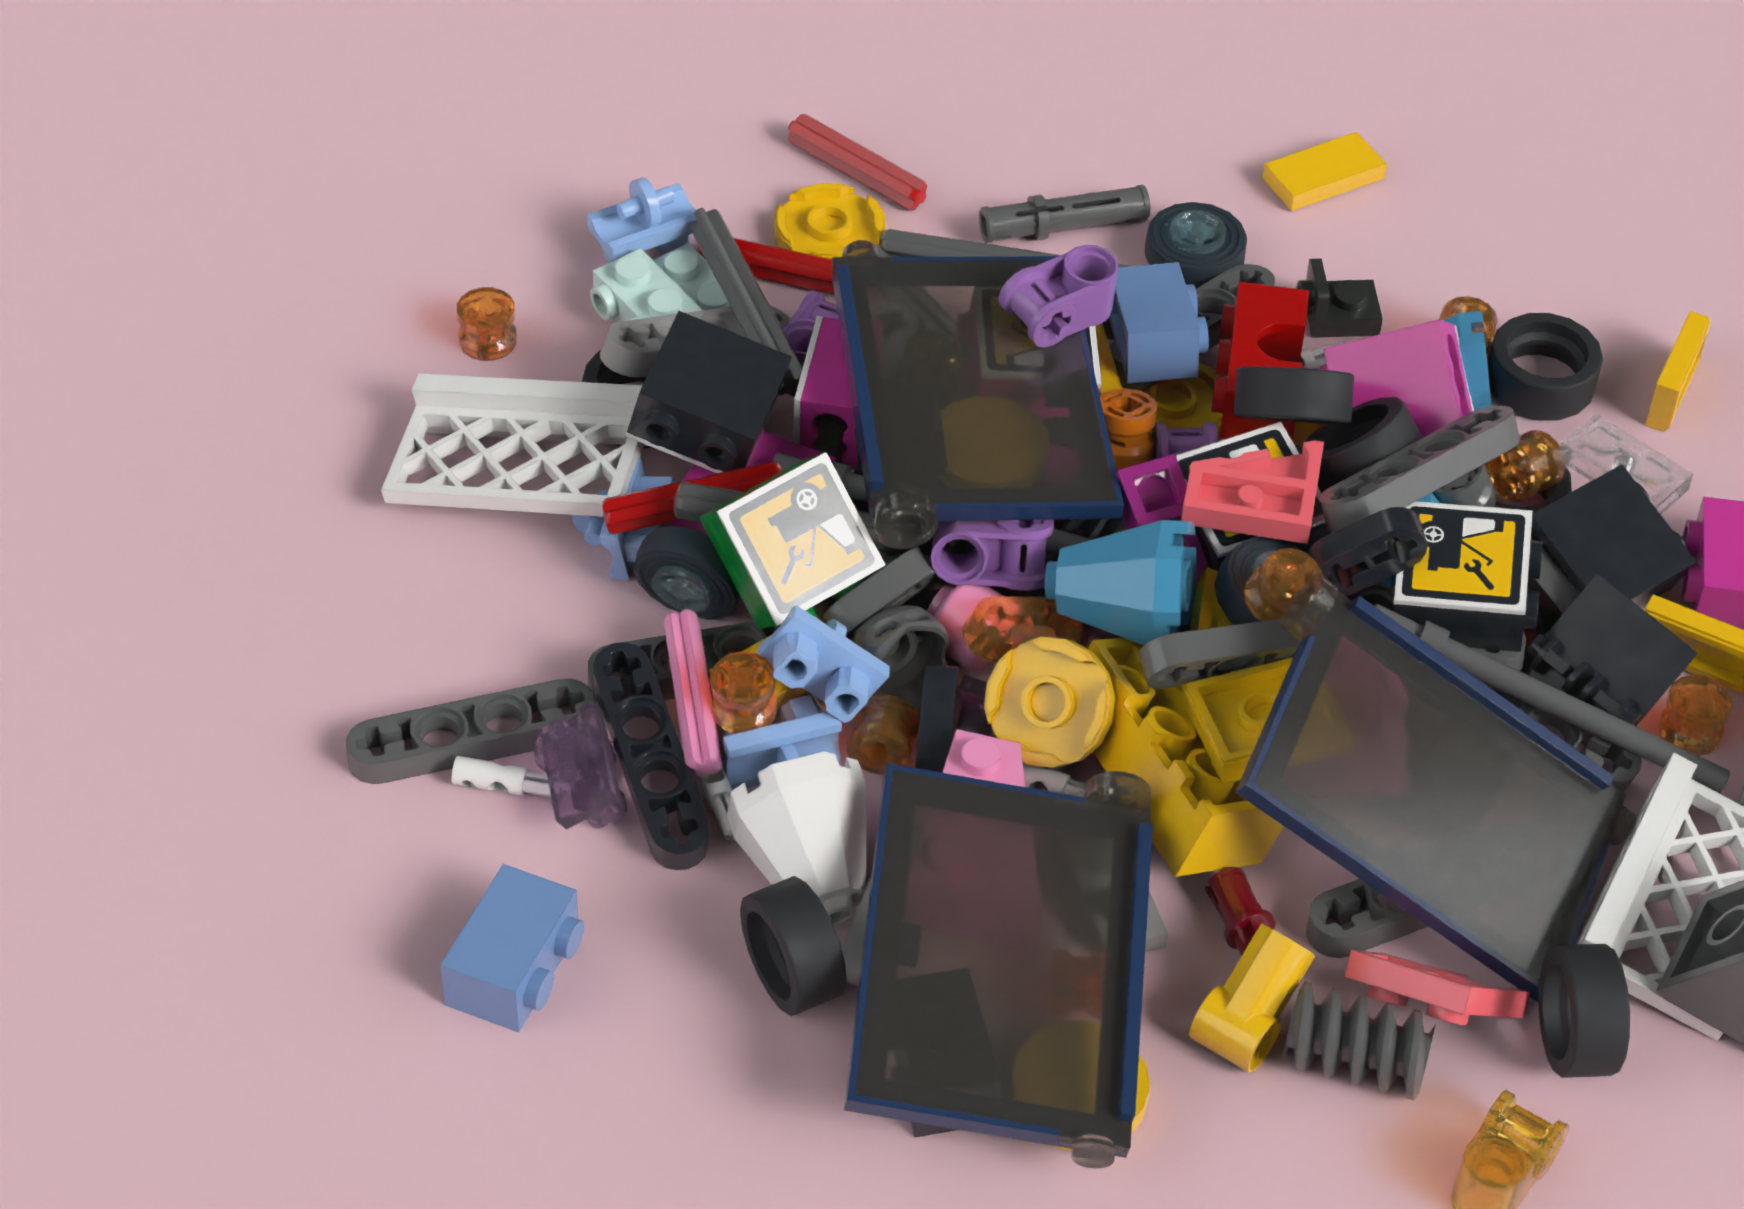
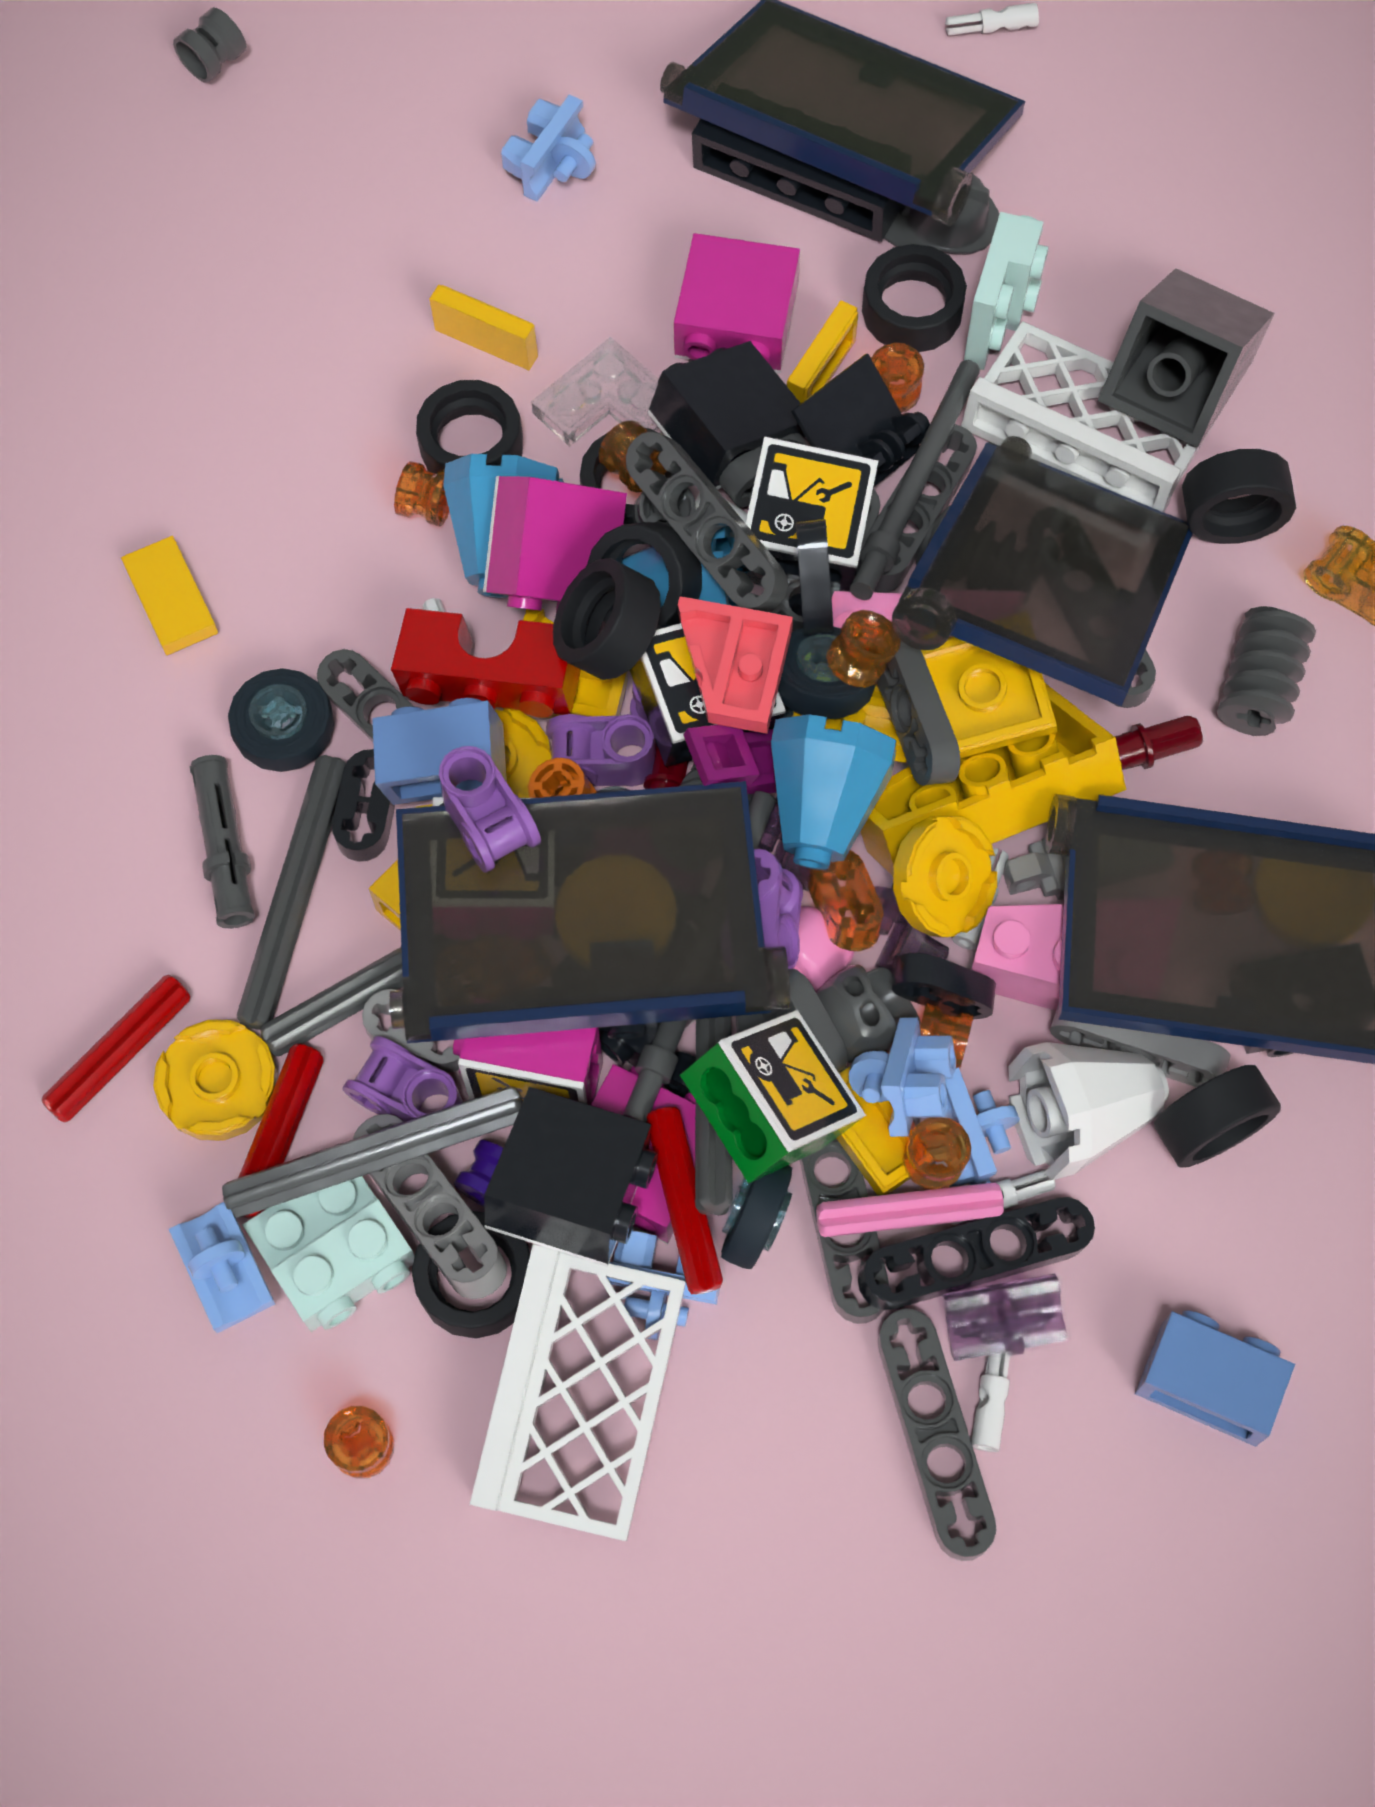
camera: 85 degrees left, 20 degrees up
(1244, 1014) = (1246, 753): yellow piece -> none
(1340, 306) = (369, 600): pearl dark grey bracket -> none
(1447, 992) = (1210, 606): coral wing -> none

